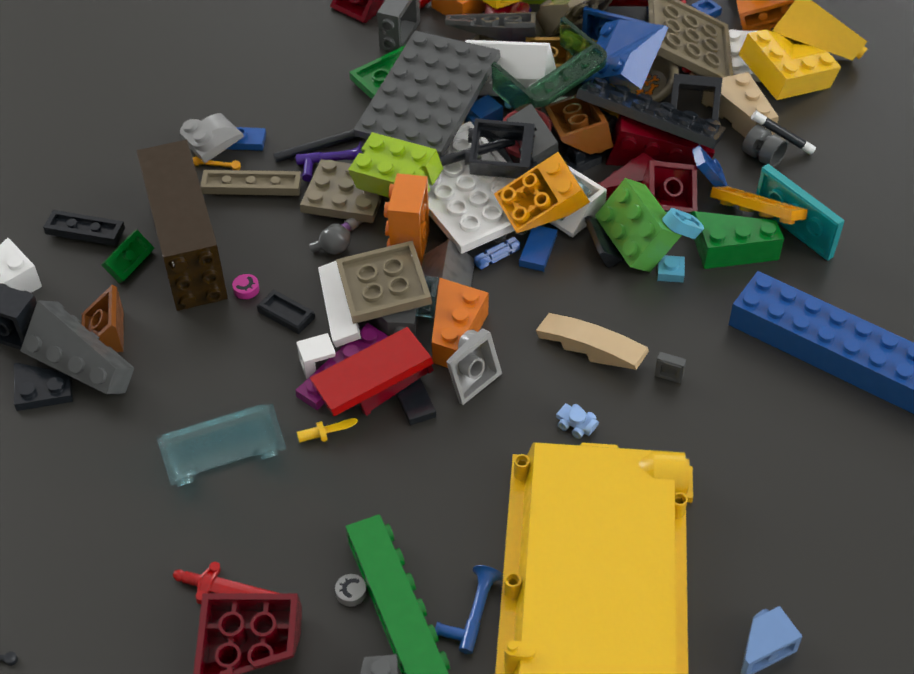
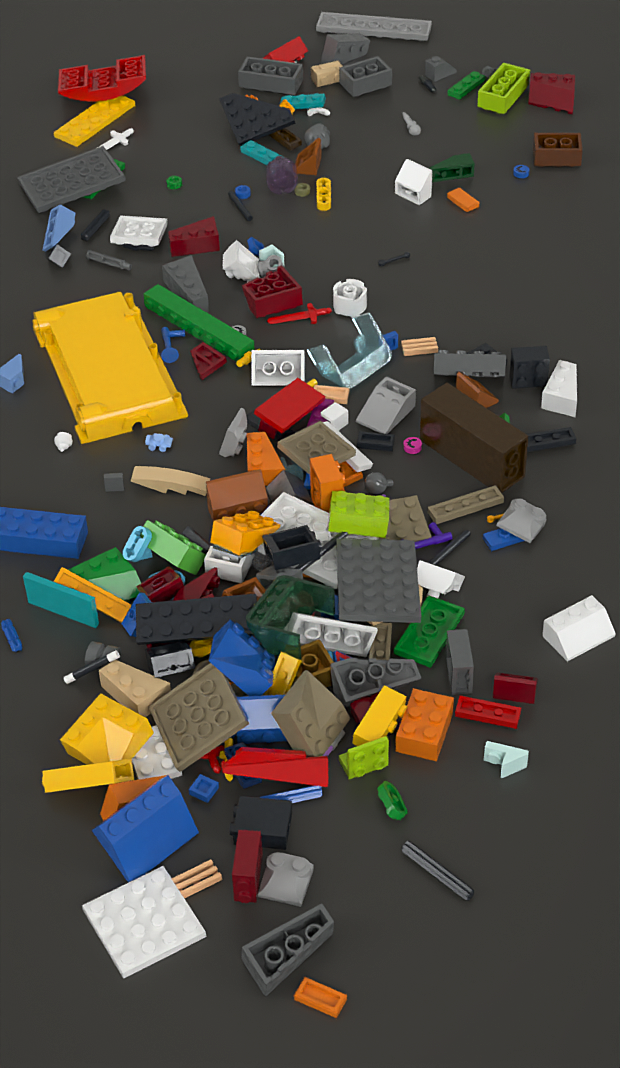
camera: 155 degrees right, 5 degrees down
(107, 439) = (419, 346): none -> light nougat tile
(133, 566) = (349, 298): none -> white brick
(144, 458) = (392, 340): none -> blue plate
(236, 341) = (387, 406): none -> light grey slope
(255, 26) = (578, 628): none -> white slope
(292, 409) = (338, 394): none -> light nougat tile
(333, 478) = (277, 367): none -> white slope
(350, 96) = (438, 579): none -> white brick
(383, 509) = (245, 360): none -> yellow piece
(432, 544) = (207, 359): none -> dark red wing
(519, 277) = (236, 494): none -> dark orange slope
(720, 470) = (63, 441): none -> white plate
(865, 216) = (11, 635): none -> blue axle

